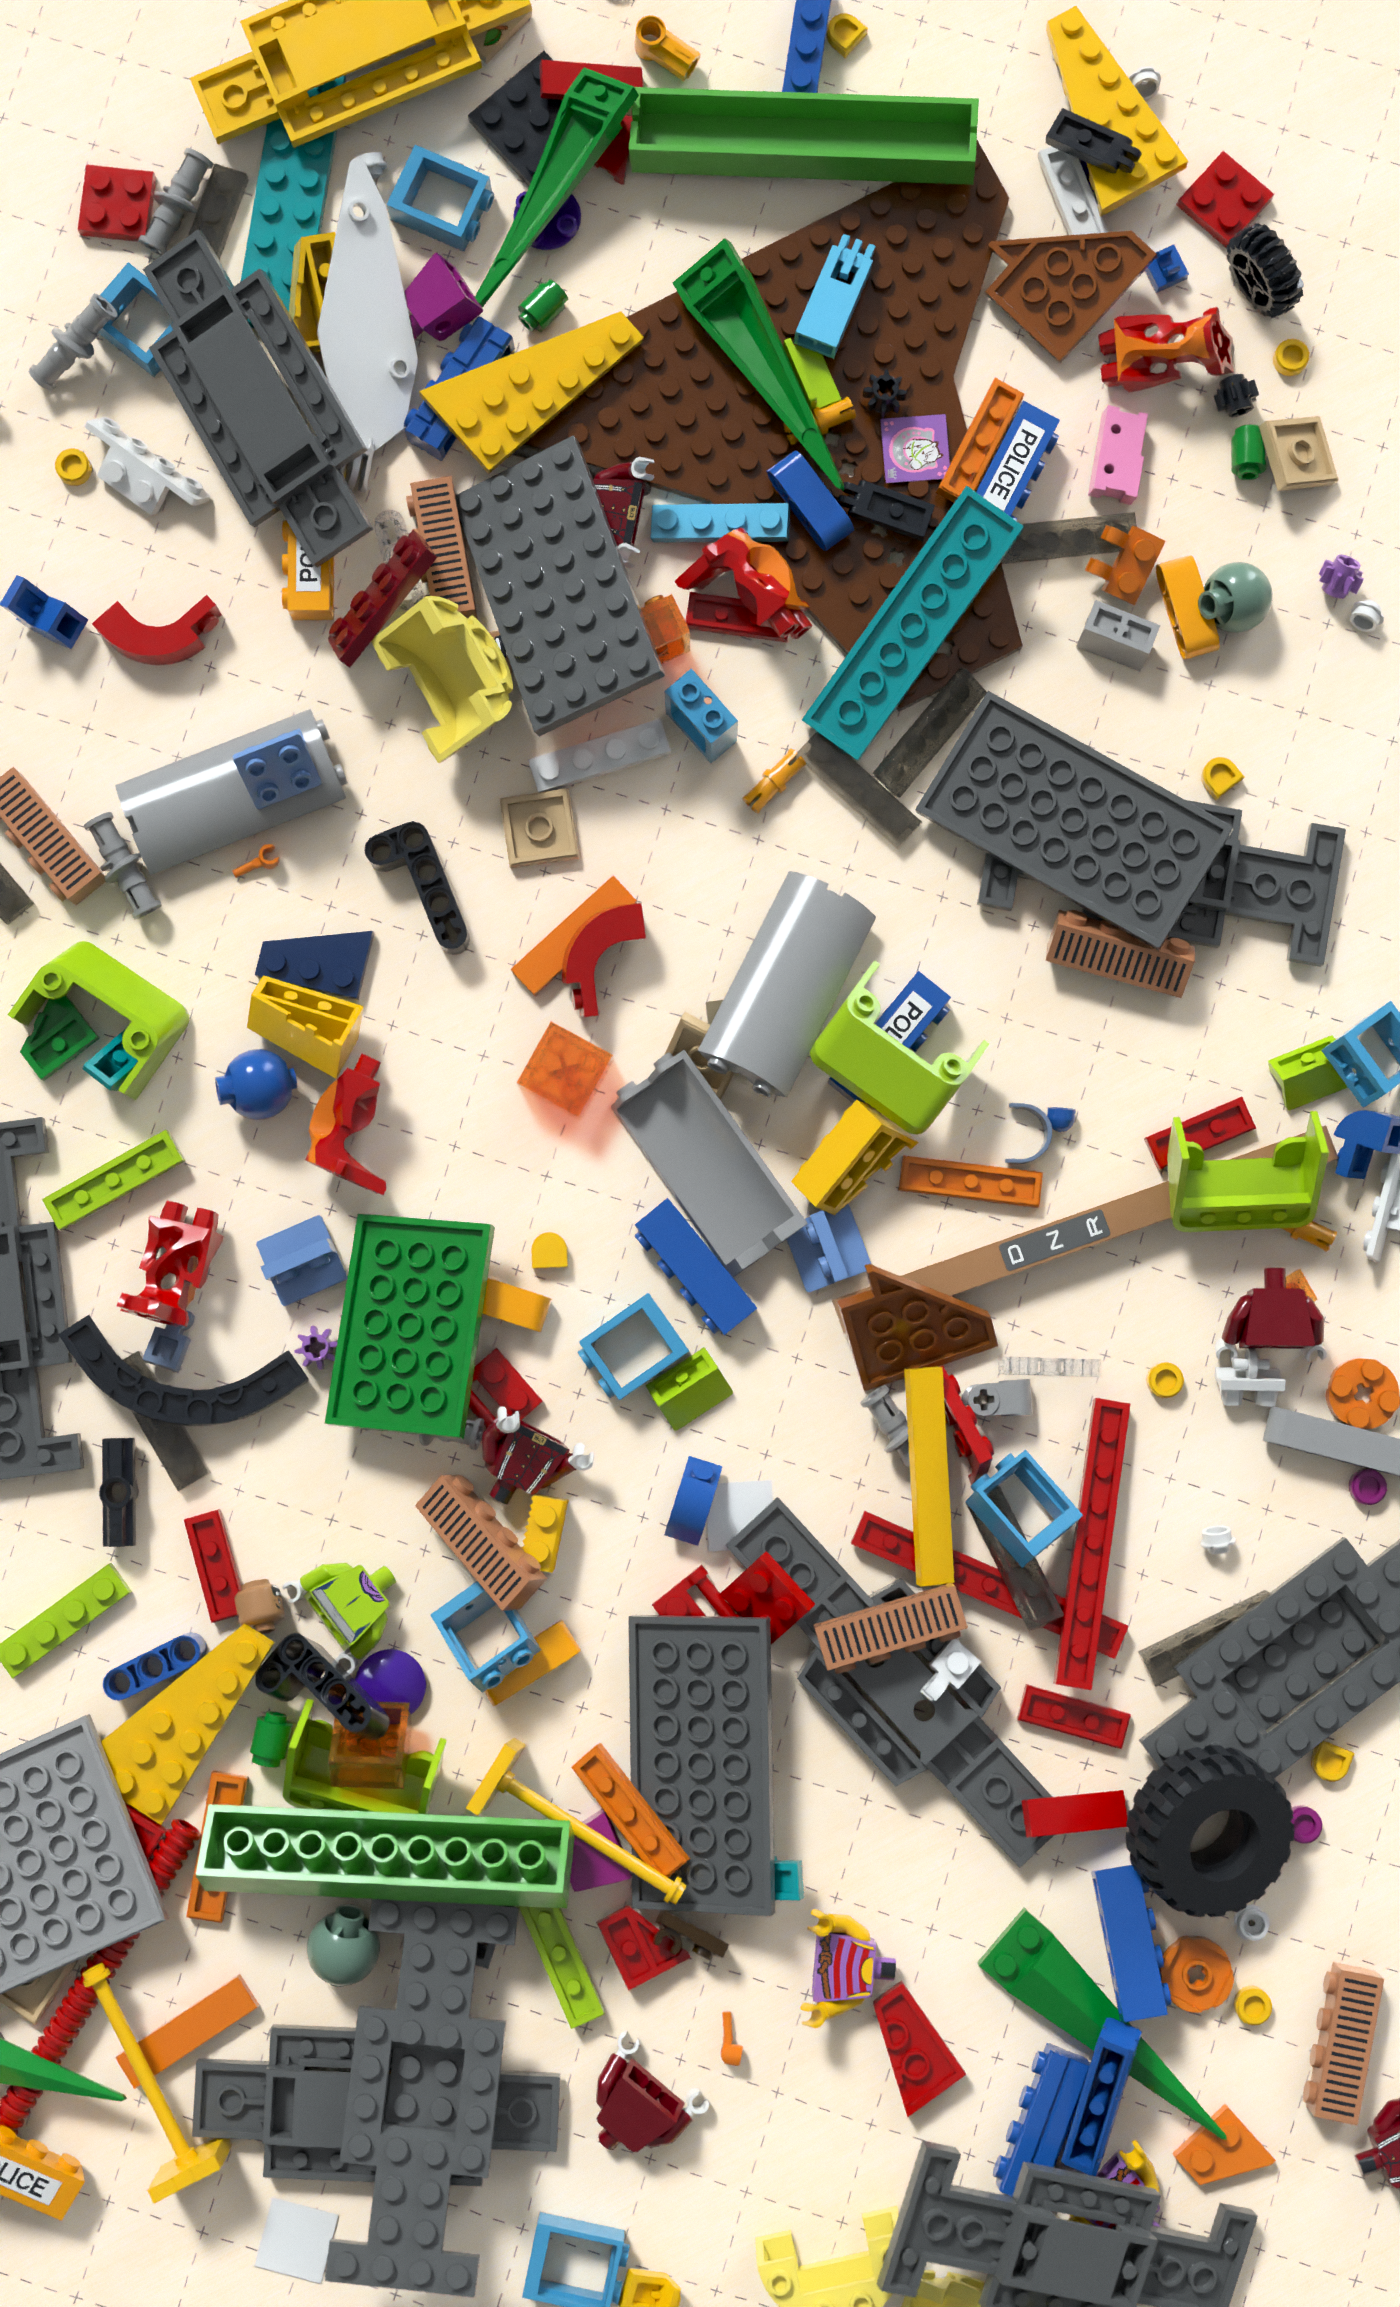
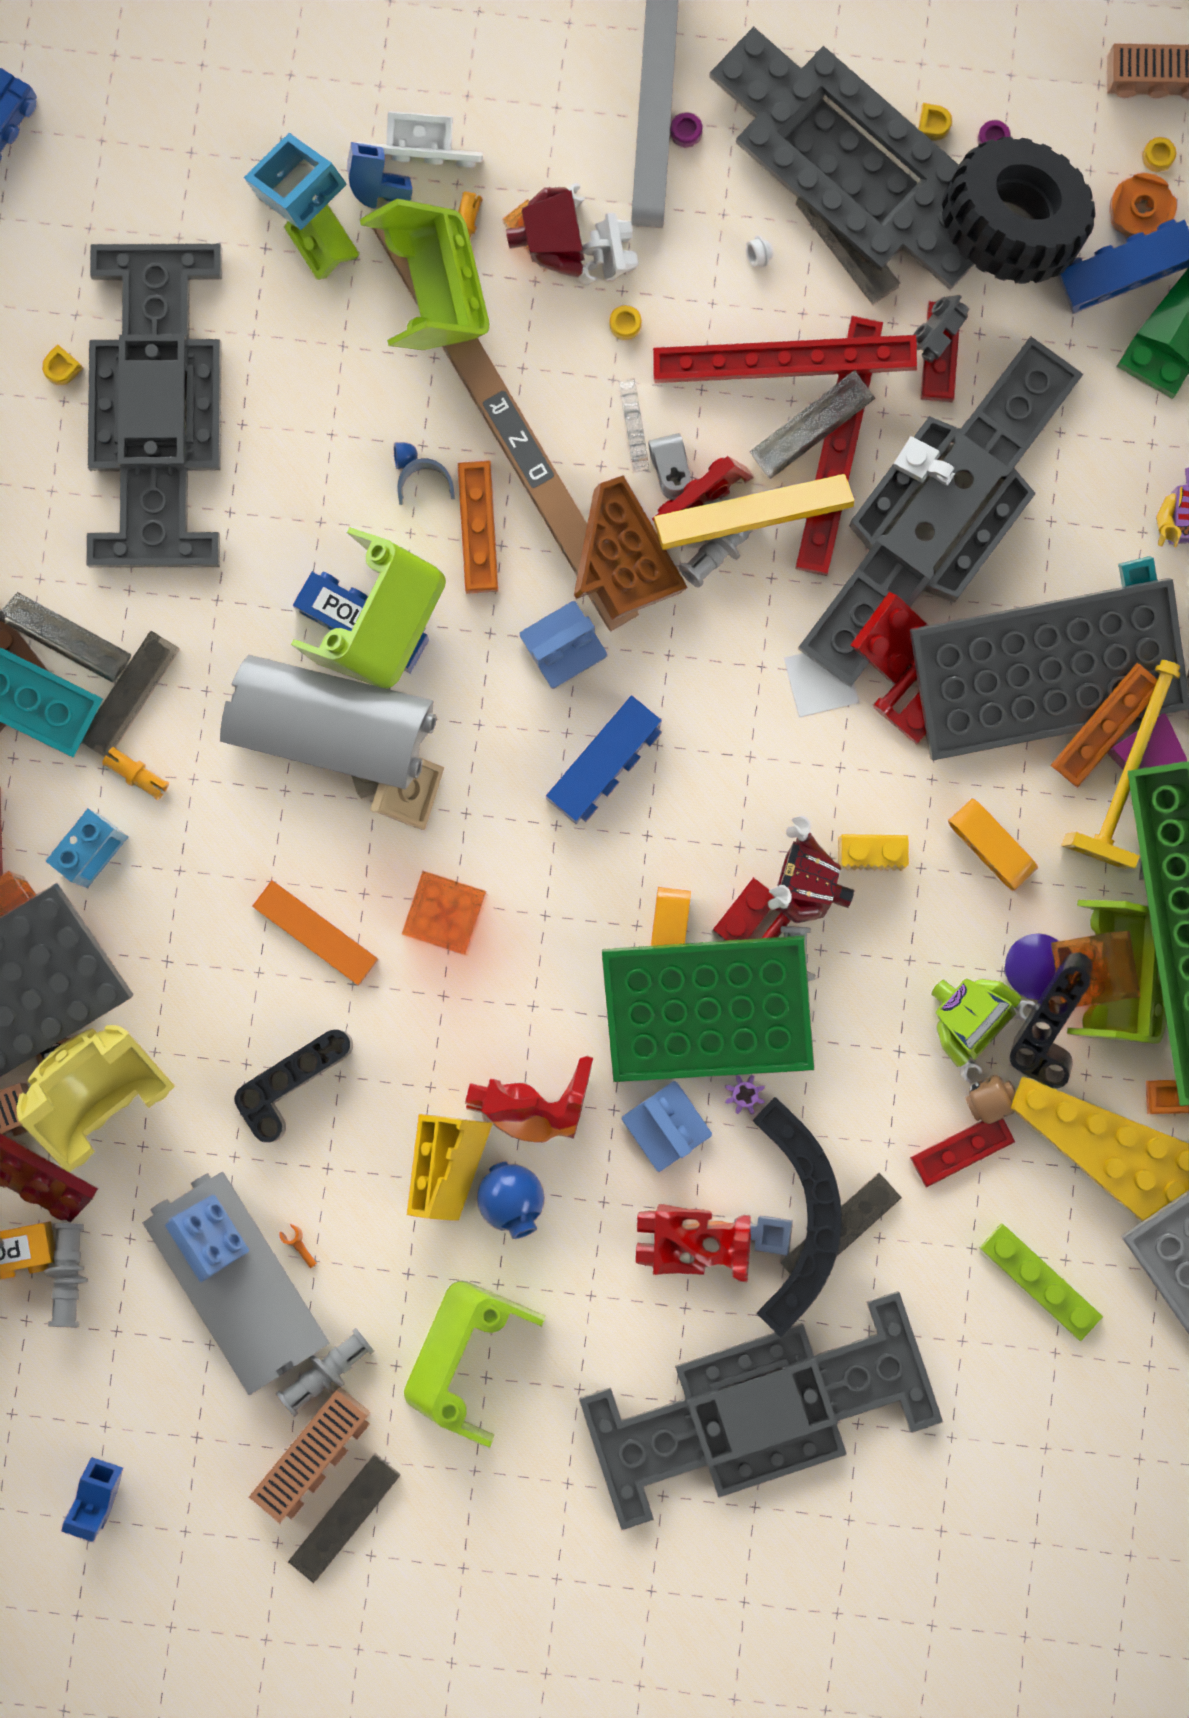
camera: 100 degrees left, 0 degrees up
(57, 1037) = (501, 1401): green wing -> none
(111, 1064) = (515, 1339): teal slope -> none
(113, 1180) = (625, 1319): lime plate -> none
(118, 1517) = (935, 1248): black piece -> none
(138, 1671) = (1076, 1197): blue beam -> none
(162, 643) = (104, 1387): red arch -> none
(270, 1739) = (1109, 1064): green brick -> none
(273, 624) = (65, 1275): none -> light grey piece
(319, 963) = (384, 1168): dark blue wing -> none
(464, 1610) = (954, 908): dark azure window -> none
(481, 1541) = (893, 904): nougat brick -> none
(539, 828) = (218, 985): tan tile -> none
(549, 1251) = (614, 898): yellow tile -> none
(589, 942) = (321, 913): red arch -> none
(592, 1358) = (664, 779): dark azure window -> none
(599, 756) = (140, 941): white plate -> none
(689, 1389) = (715, 745): lime panel -> none
(693, 1500) = (817, 720): blue brick -> none
(707, 1163) = (506, 766): light grey cylinder -> none
(849, 1156) = (476, 637): yellow wedge -> none
(890, 1627) = (897, 520): nougat brick -> none
(1043, 1489) = (747, 408): dark azure window -> none
(1074, 820) = (126, 487): dark grey plate -> none
(1074, 1813) = (1026, 333): red tile -> none
(1110, 1729) = (947, 315): none -> dark grey hinge
(1114, 954) = (242, 426): nougat brick -> none
(1205, 1129) = (390, 321): red tile -> none
(1254, 1932) = (1095, 161): white plate -> none
(1382, 1400) = (602, 165): orange plate -> none

